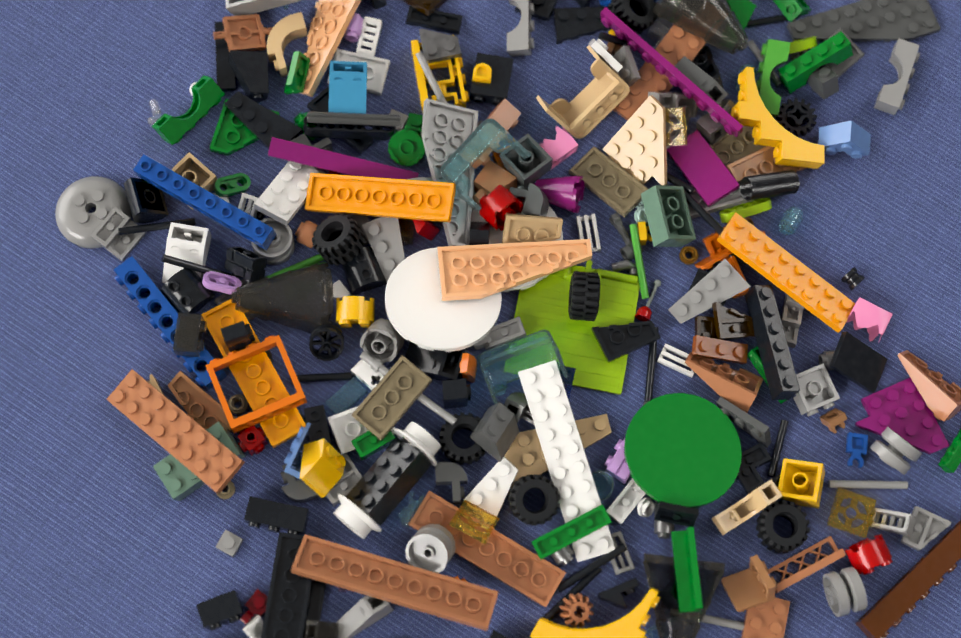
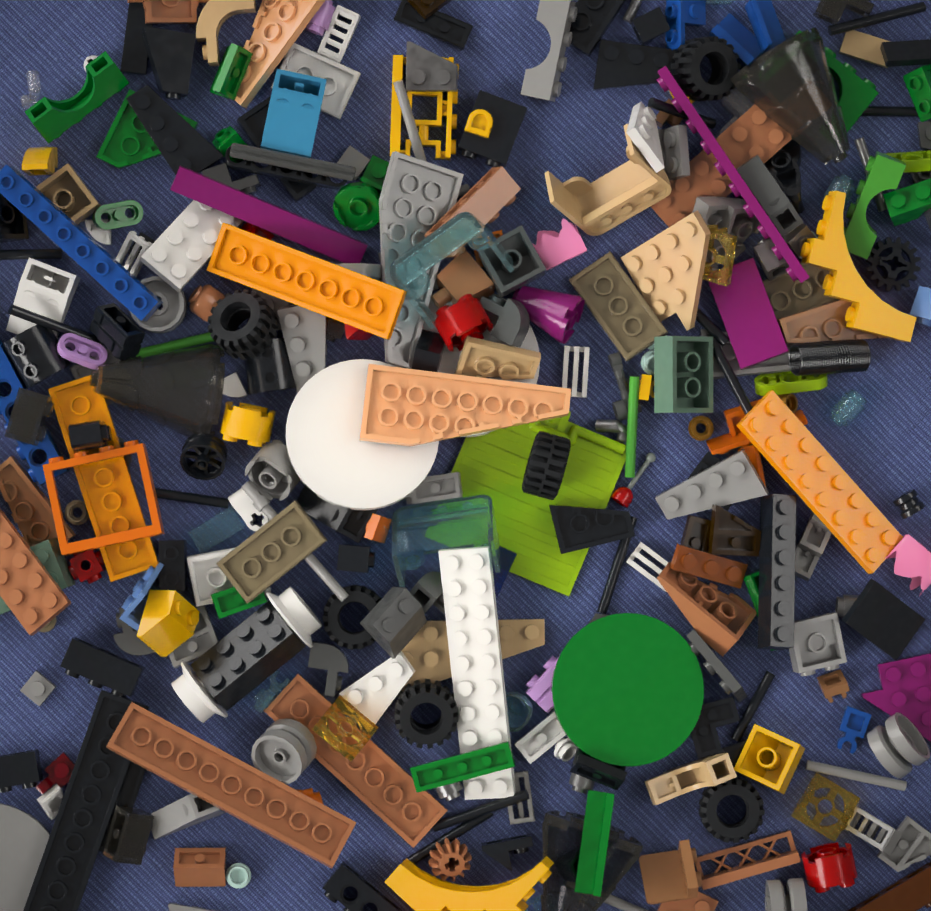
camera: 15 degrees right, 15 degrees up
(168, 155) = (40, 161): none -> yellow slope

